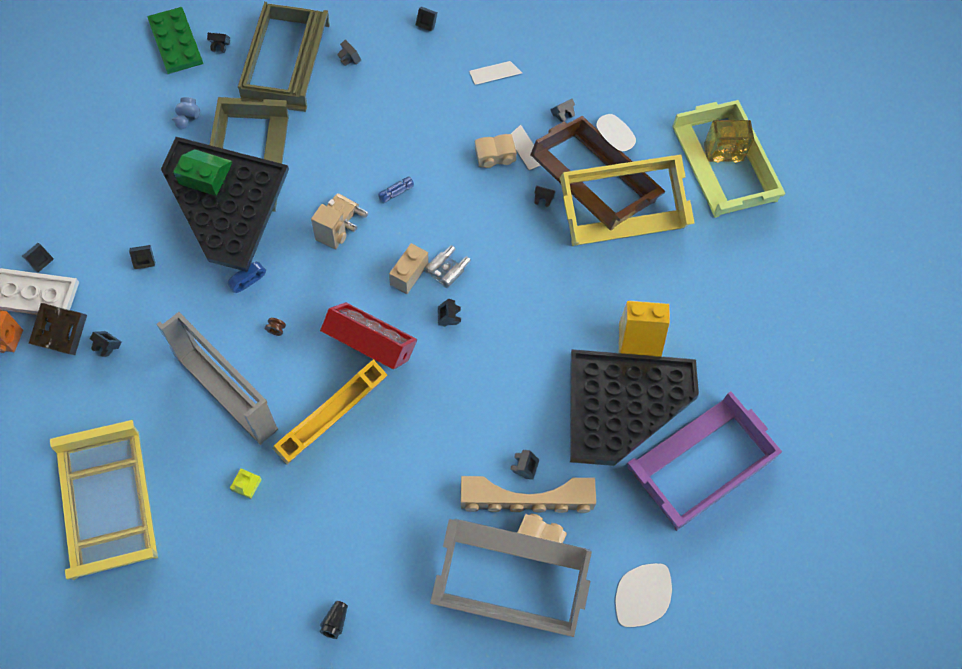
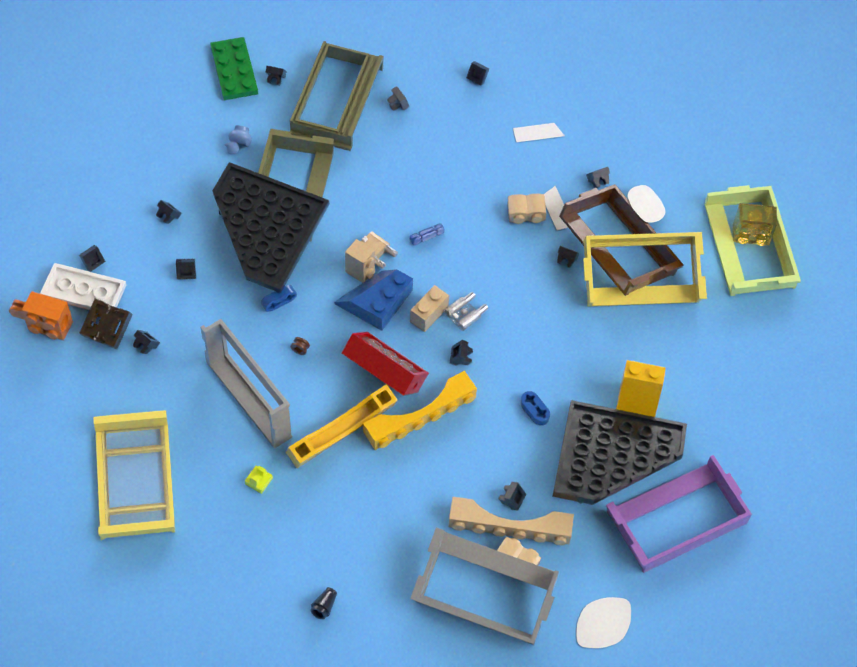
camera: 10 degrees right, 5 degrees down
(117, 195) = (167, 209): none -> black tile
(202, 171) = (250, 197): green slope -> none
(353, 263) = (378, 297): none -> blue wedge
(378, 407) = (386, 428): none -> yellow arch
(538, 359) = (532, 410): none -> blue beam

